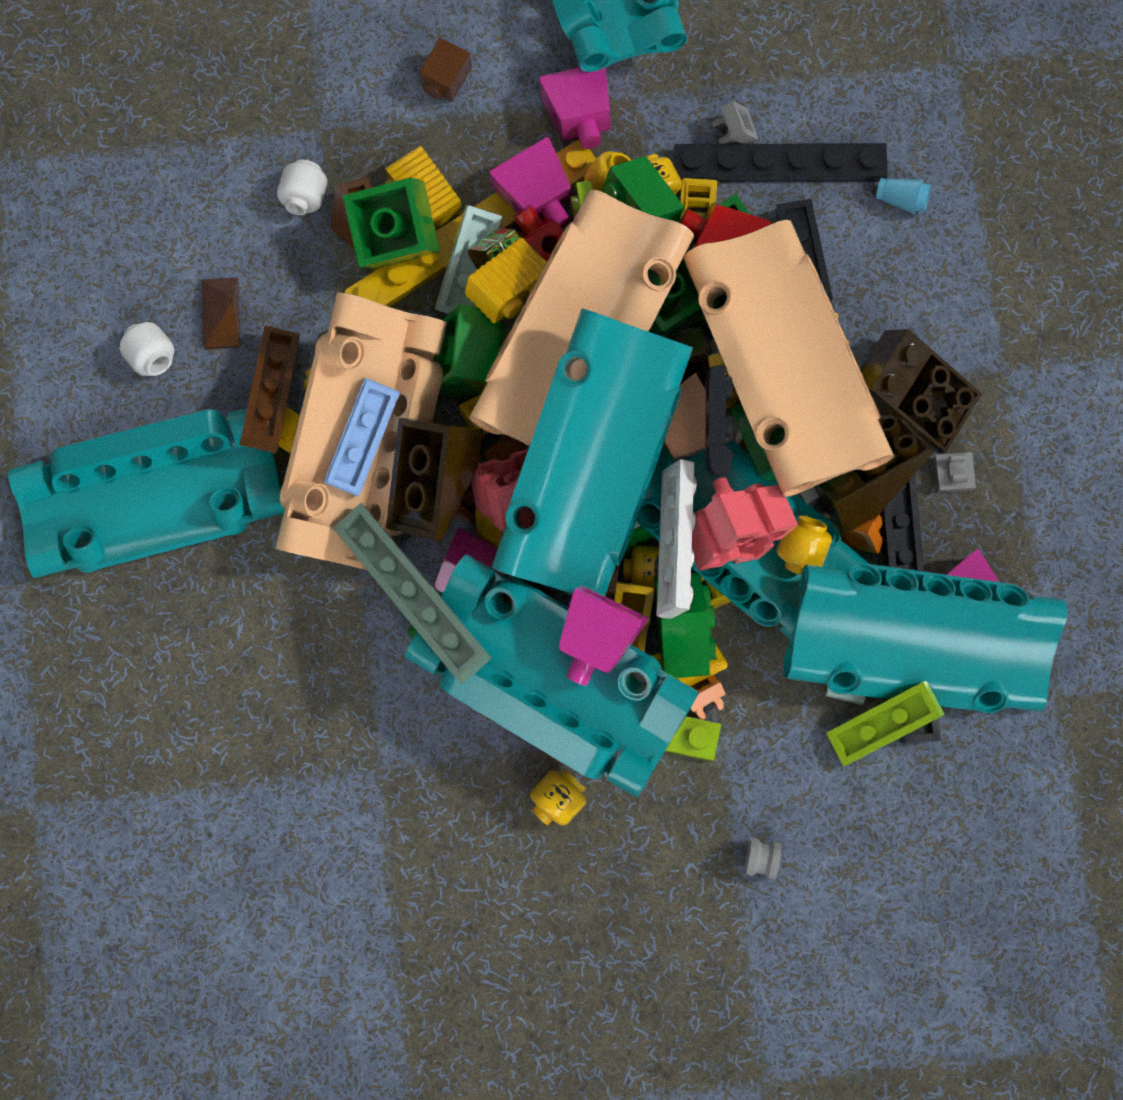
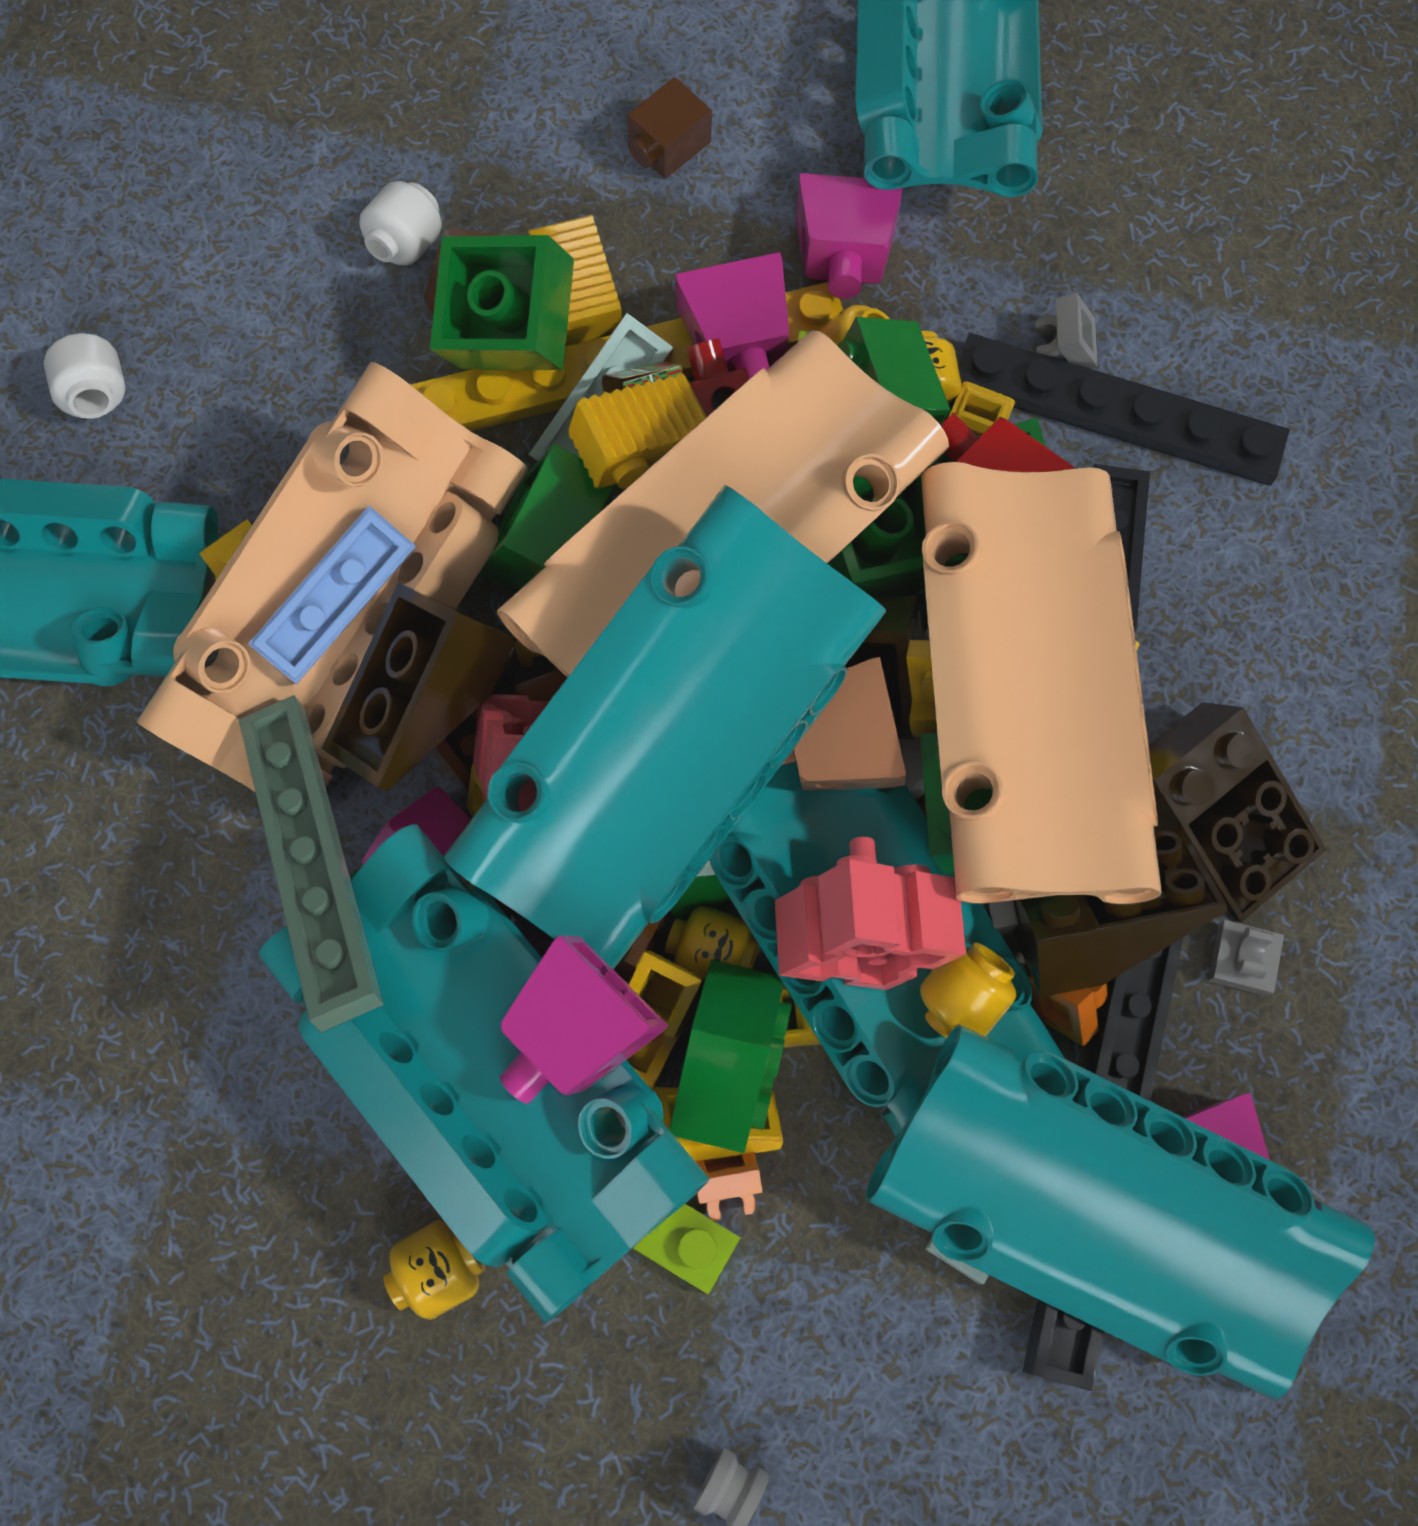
camera: 15 degrees right, 5 degrees down
(221, 313) = (217, 364): reddish brown slope -> none
(270, 389) = (228, 487): reddish brown plate -> none
(676, 539) = (750, 930): white plate -> none
(717, 424) = (887, 747): black hinge -> none
(885, 723) = (1009, 1333): lime plate -> none
(905, 194) = (1296, 511): medium azure cone -> none

